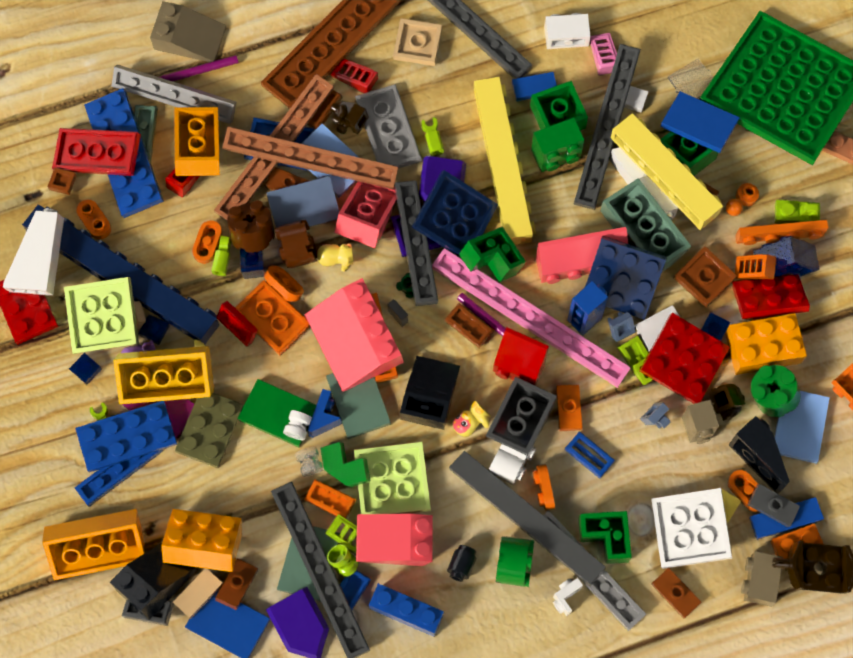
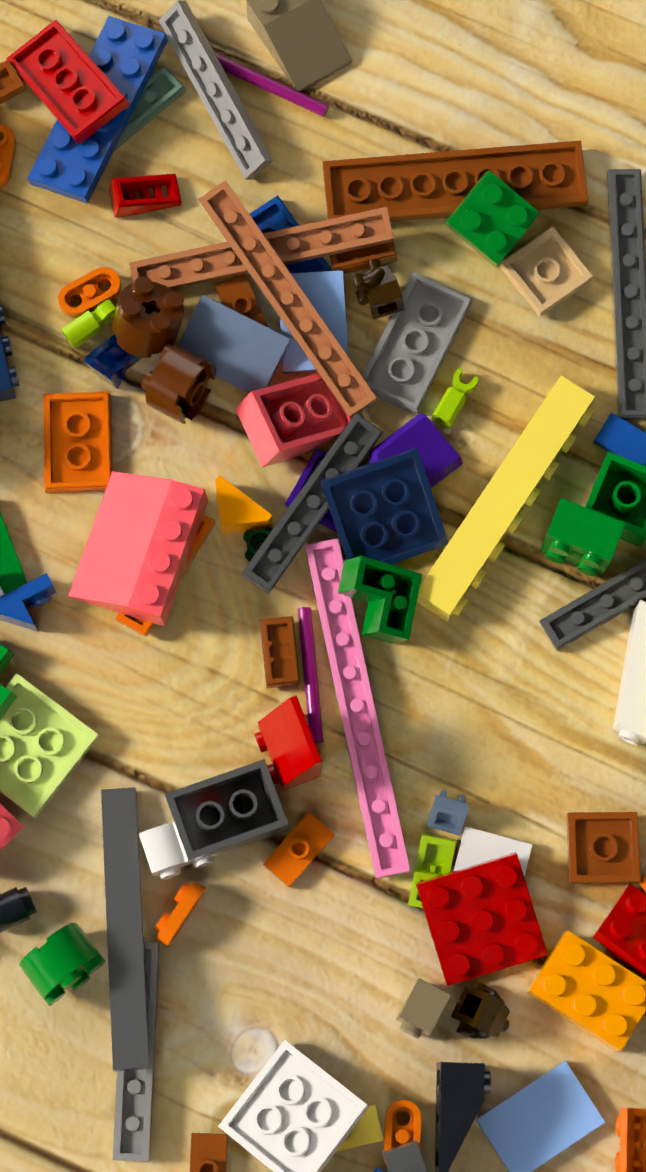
camera: 40 degrees right, 5 degrees up
(196, 141) = (182, 166): light orange brick -> none
(237, 323) = (31, 414): red plate -> none
(283, 283) = (125, 419): orange plate -> none
(334, 254) = (211, 433): light yellow animal -> none
(359, 407) = (72, 631): sand green tile -> none
(364, 87) = (445, 270): red slope -> none
(369, 37) = (491, 218): none -> green brick
(383, 278) = (238, 511): none -> light orange slope
(397, 312) = (215, 564): dark grey tile -> none
(429, 392) = (161, 685): black slope -> none
(469, 420) = (172, 759): animal -> none
(568, 589) = (92, 1049): white bracket -> none
(572, 255) = (482, 692): coral slope -> none
(587, 307) = (423, 757): blue brick -> none
(604, 467) = (271, 954): blue tile -> none
(612, 530) = (203, 1036): green brick -> none
(626, 275) = (502, 761): dark blue plate -> none
(645, 222) = (587, 726): sand green slope -> none
(656, 416) = (384, 951): sand blue tile -> none
(715, 326) = (554, 916): clear blue plate -> none
(782, 400) = (549, 1035): green brick -> none

